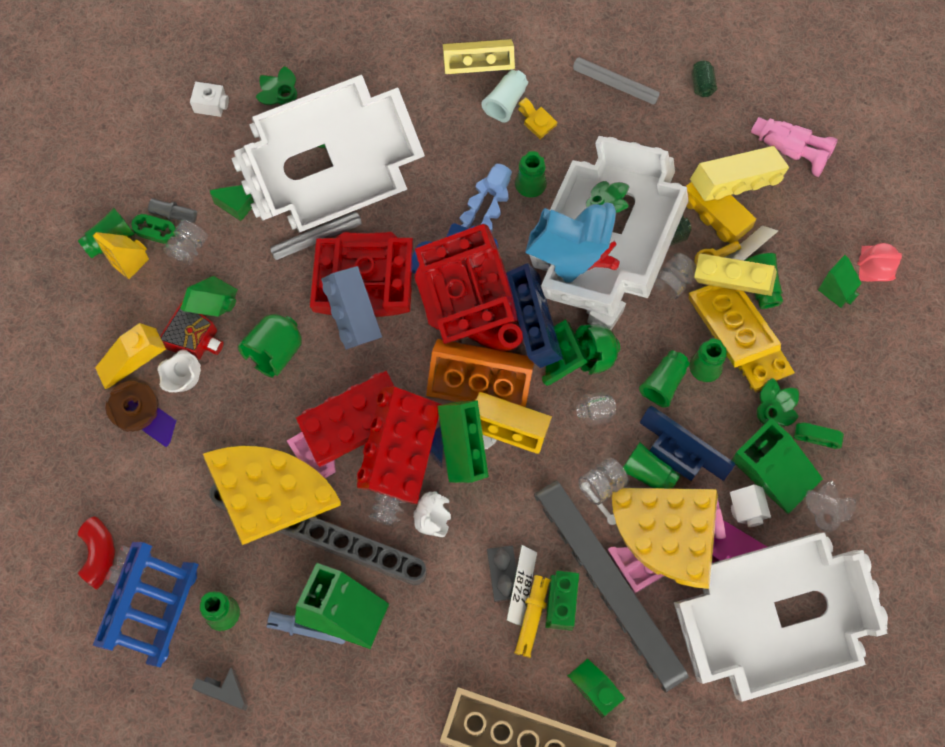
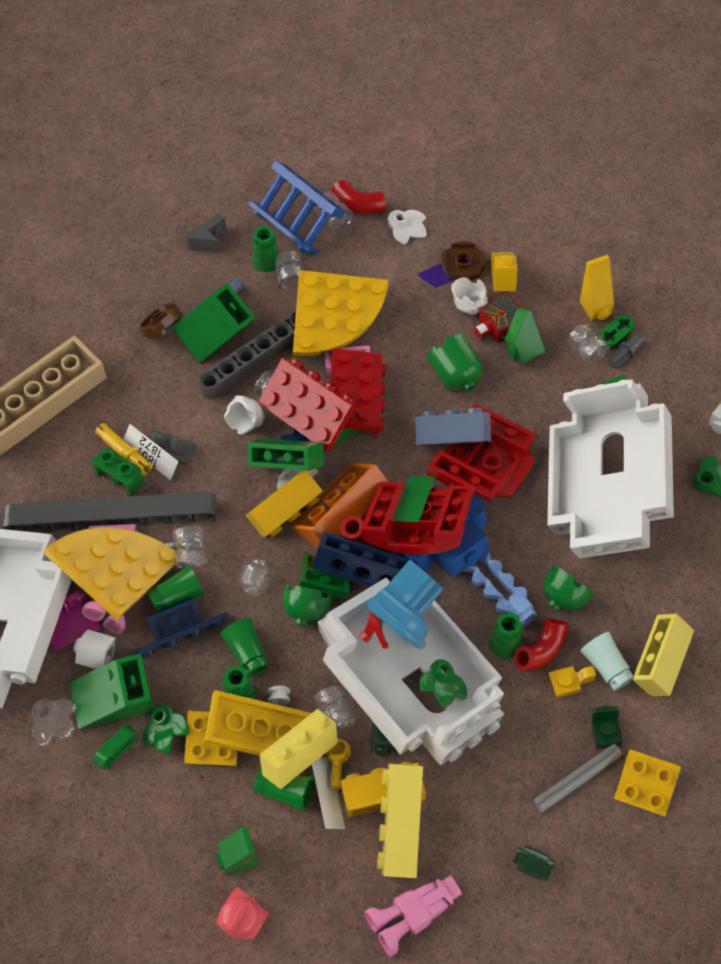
camera: 120 degrees right, 10 degrees down
(107, 482) = (409, 226): none -> white plate
(110, 224) = (627, 295): green plant -> none
(231, 570) = (288, 267): none -> clear wheel
(309, 238) = (545, 421): light grey axle -> none
(371, 657) = (158, 321): none -> reddish brown plate
(447, 302) = (413, 499): none -> green sticker
(462, 149) = (565, 591): none -> green cylinder
(517, 146) = (544, 648): none -> red cylinder
(563, 76) = (606, 726): none -> dark green bracket
(590, 31) = (647, 782): none -> yellow hinge
(596, 688) = (39, 462): green slope -> none
(690, 329) = (279, 695): none -> white bush

